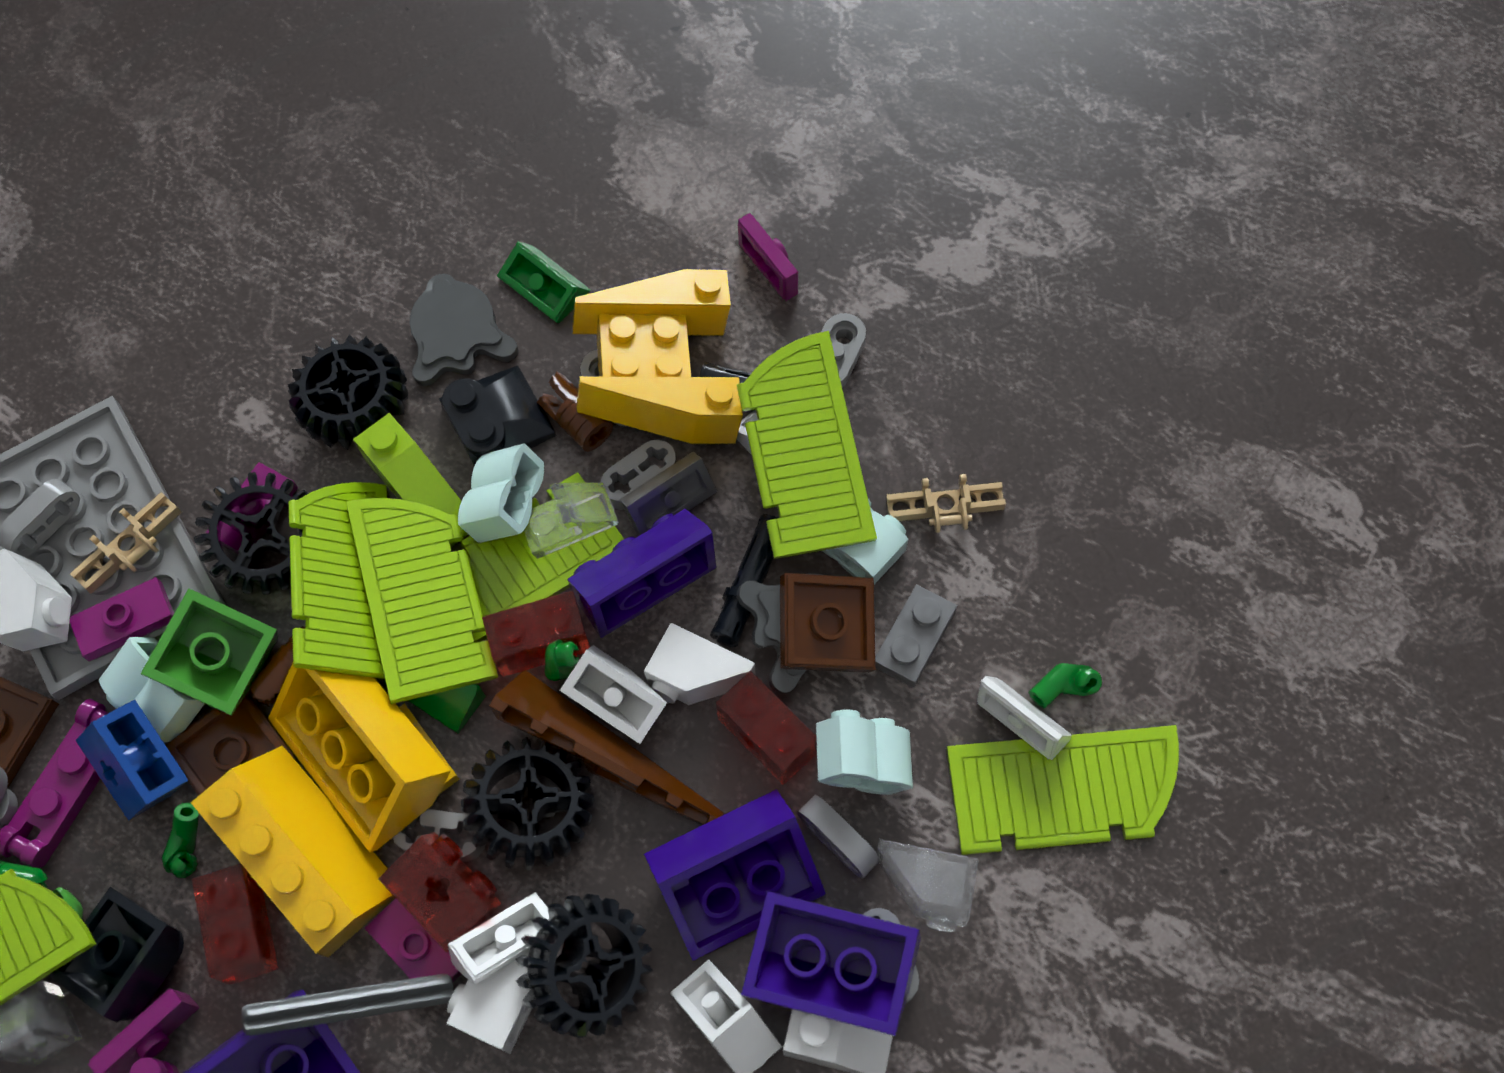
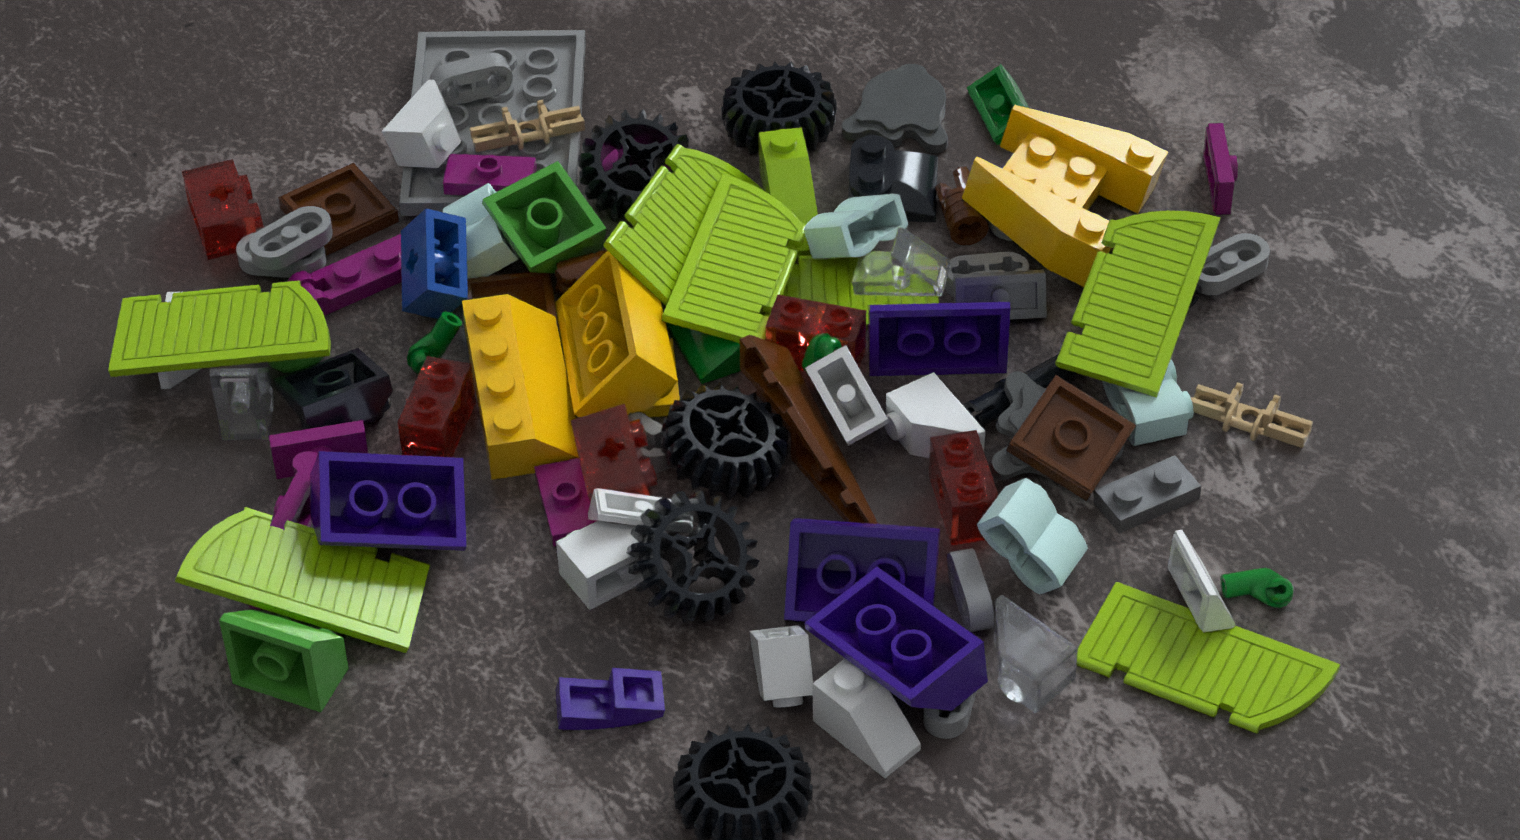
camera: 30 degrees right, 20 degrees down
(346, 1004) = (490, 485): dark grey axle -> none

